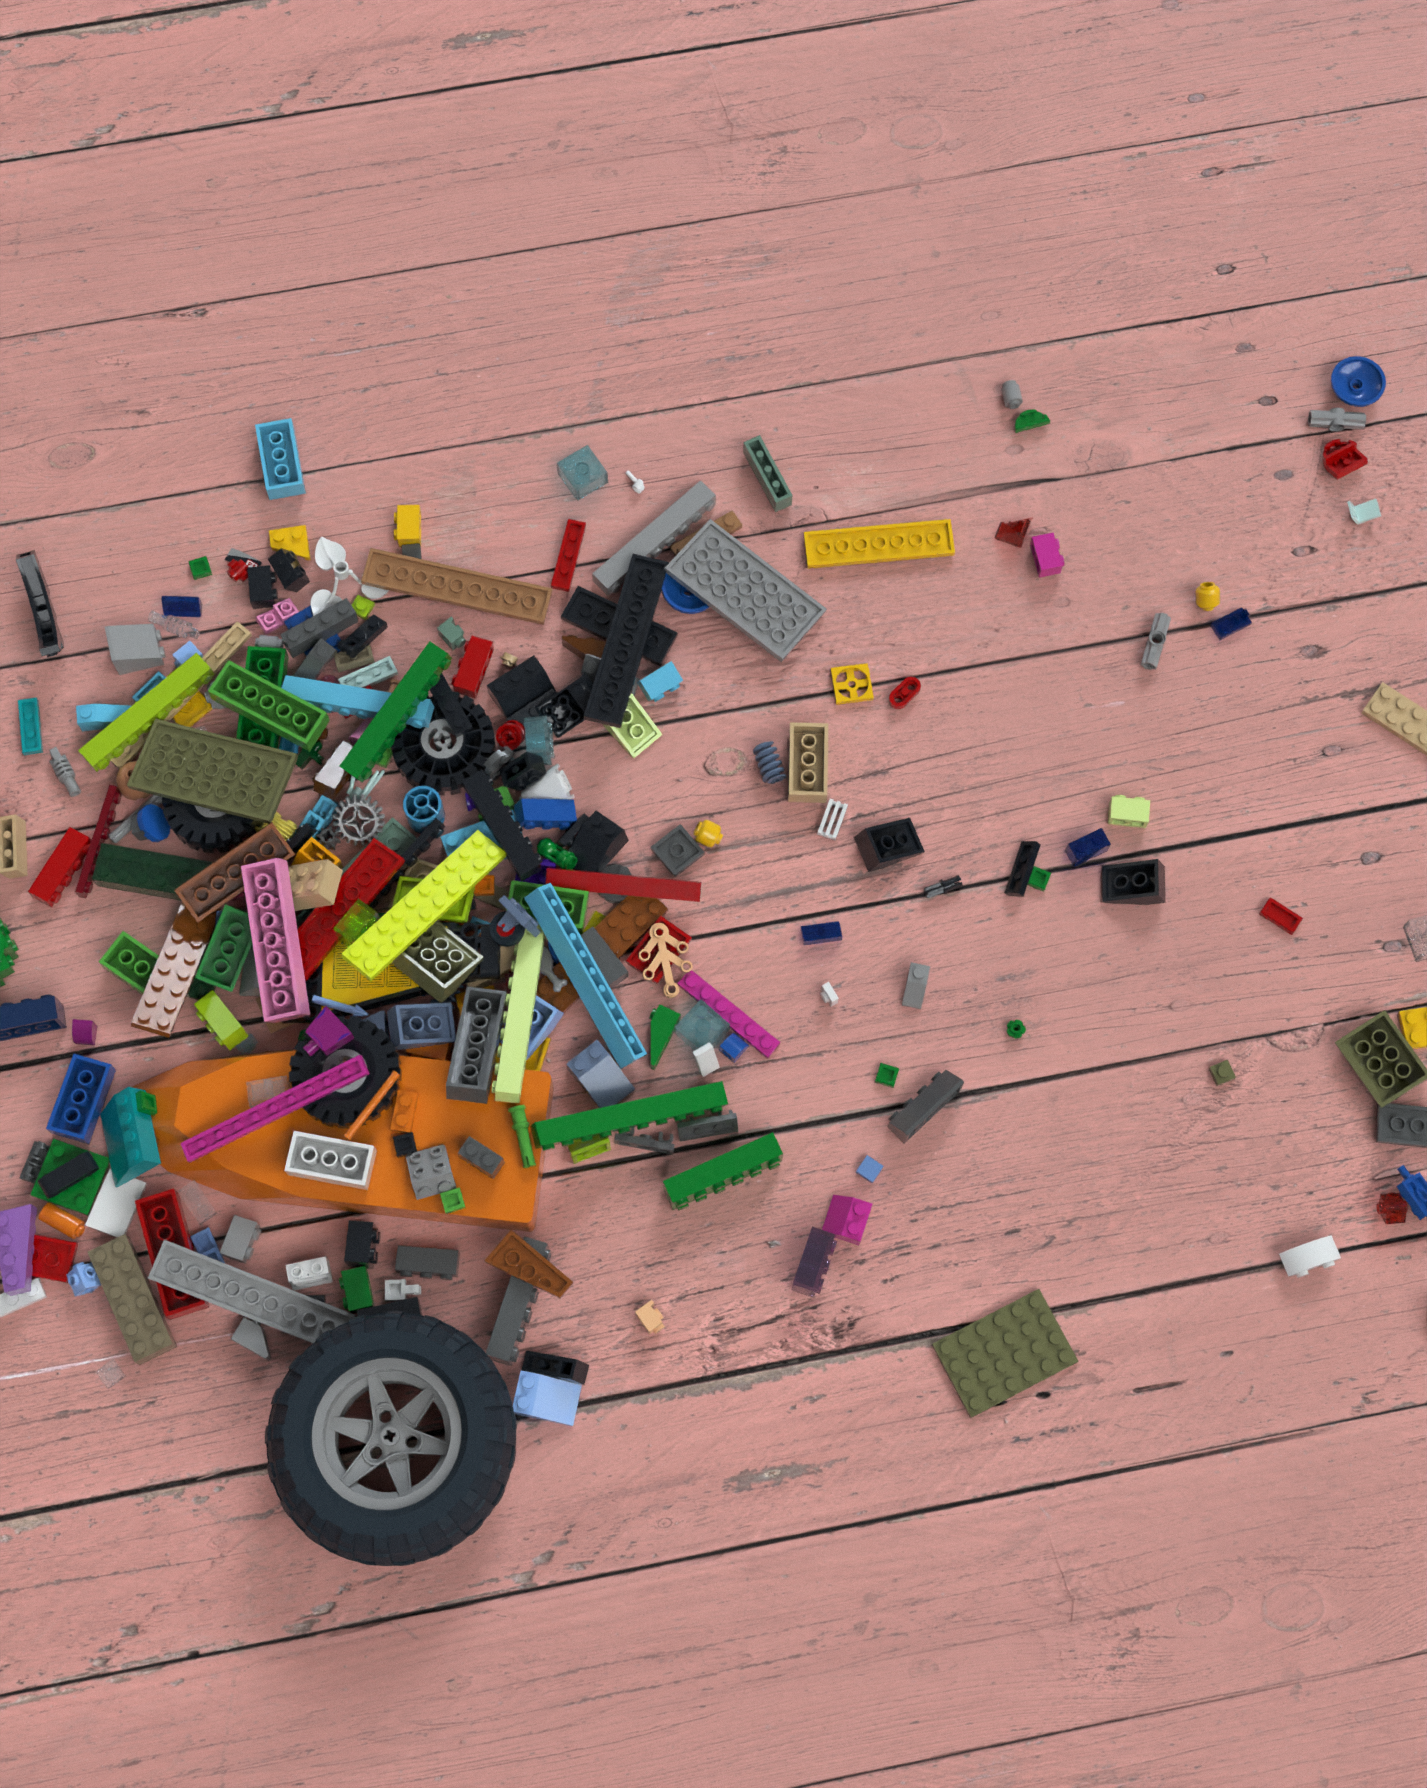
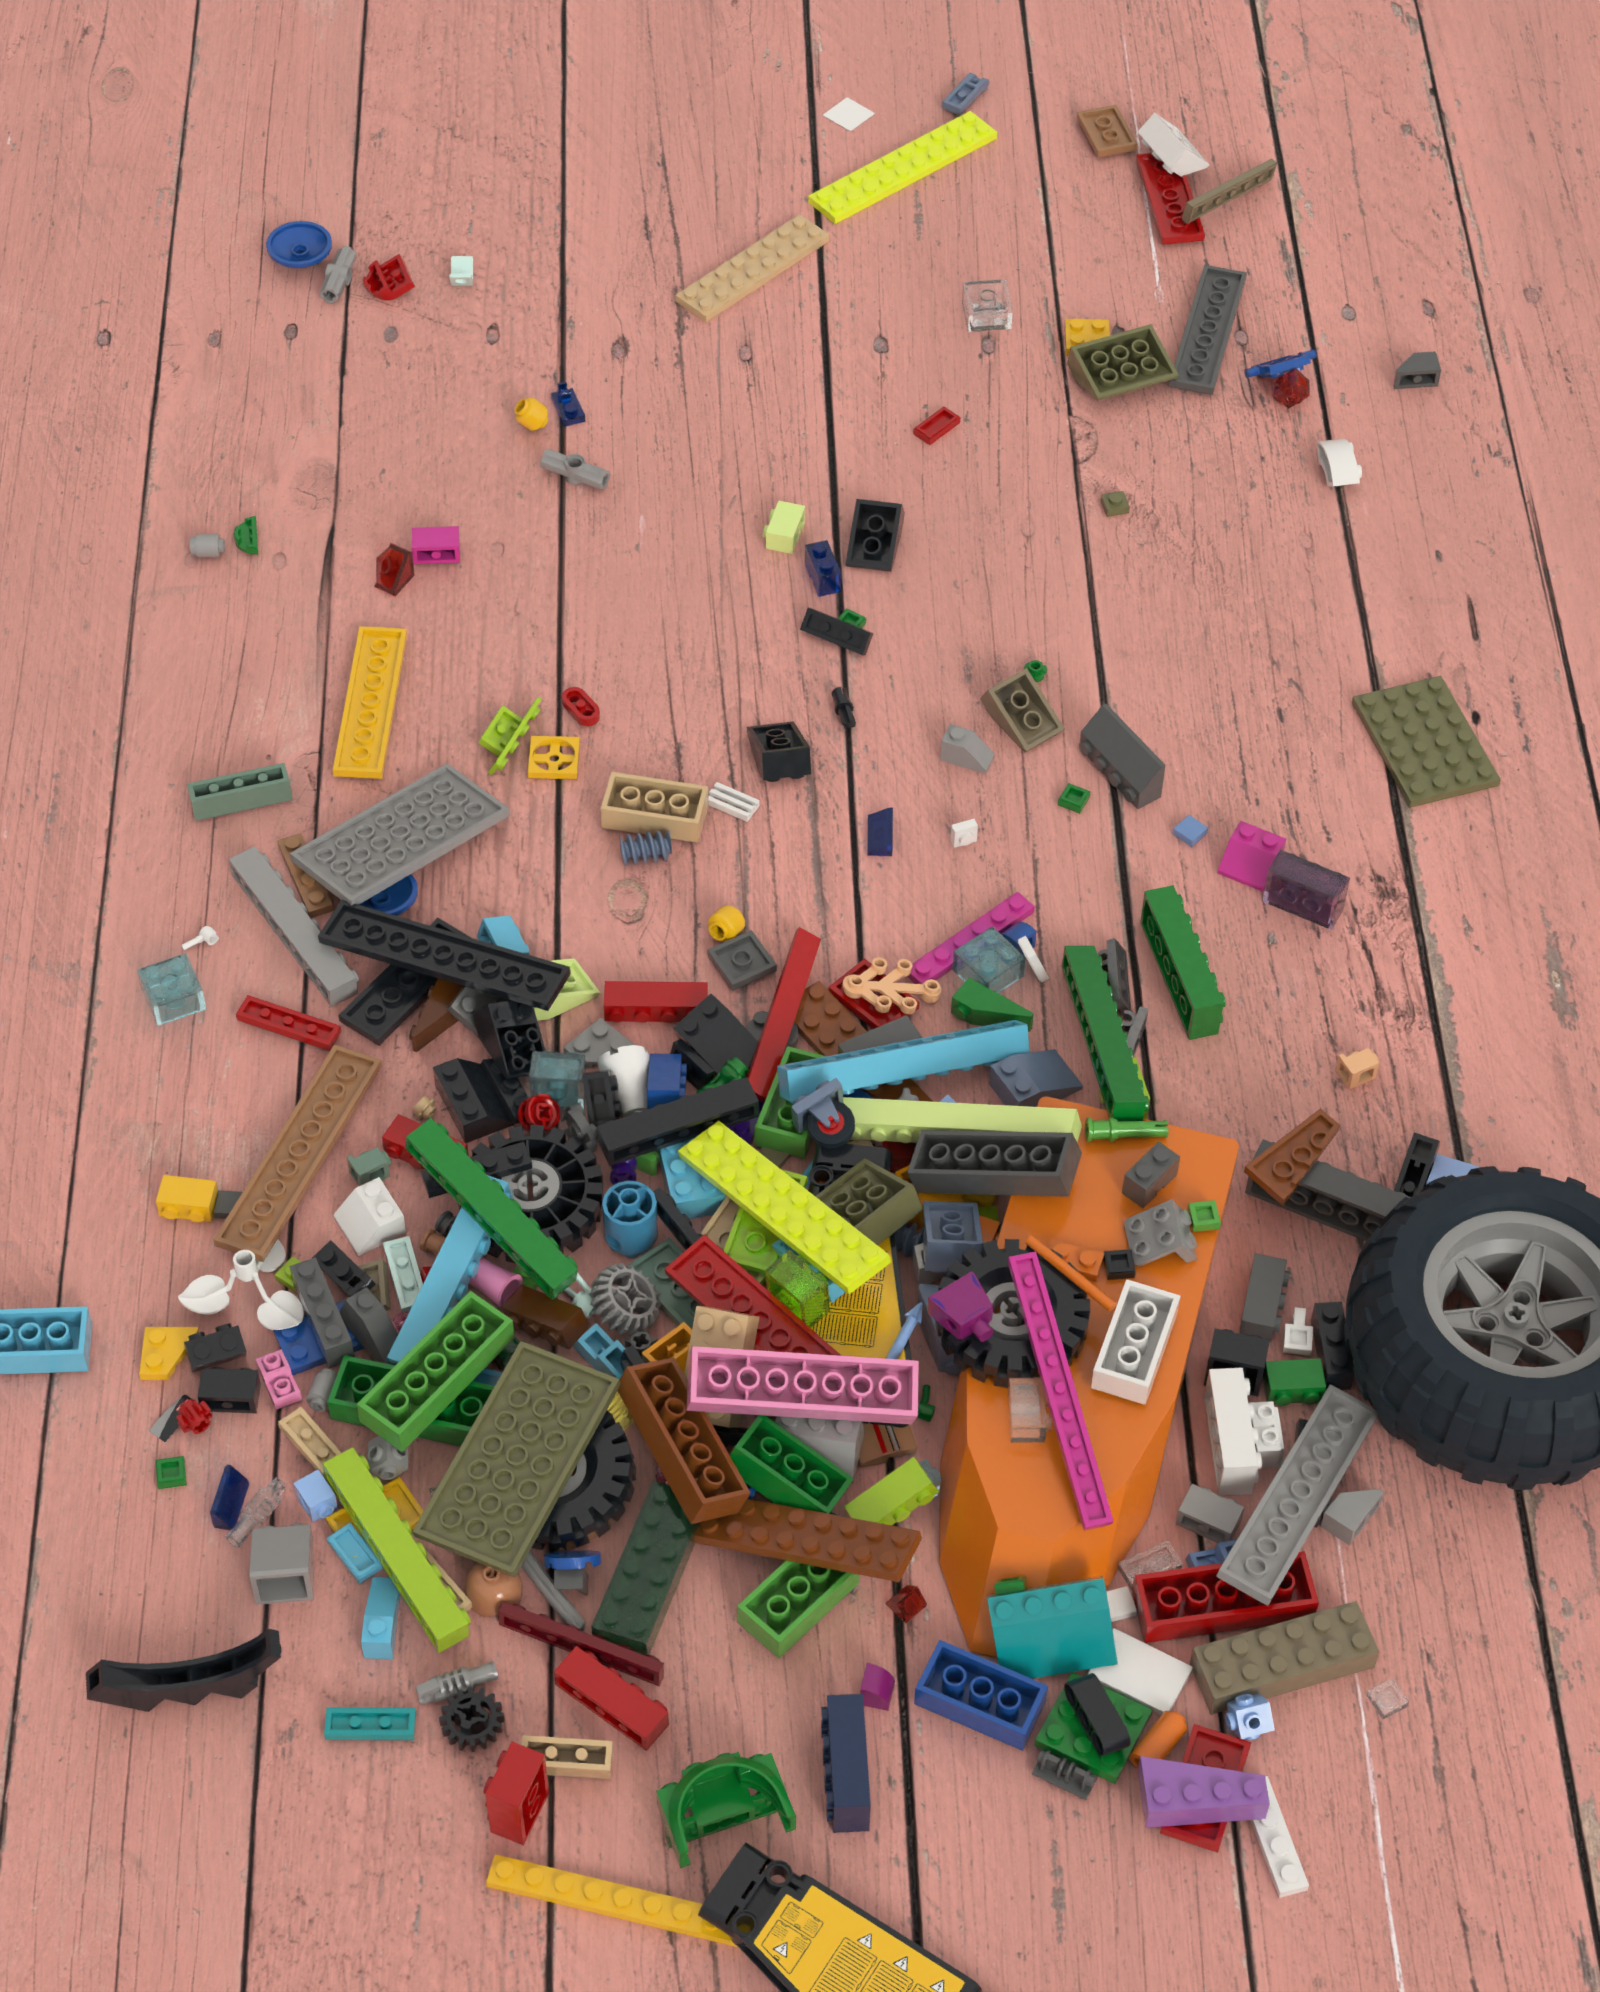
camera: 80 degrees left, 20 degrees down
(41, 792) = (474, 1723): none -> black gear
(153, 1043) = (907, 1602): none -> clear red slope
(166, 1182) = (1121, 1604): none -> white tile
(302, 1245) = (1231, 1431): none -> white brick
(409, 643) = (370, 1217): none -> white slope
(584, 766) = (596, 1041): none -> light grey plate
(627, 795) = (651, 1000): none -> red brick
(865, 642) = (503, 731): none -> lime bracket
(965, 1023) = (1022, 711): none -> dark tan slope

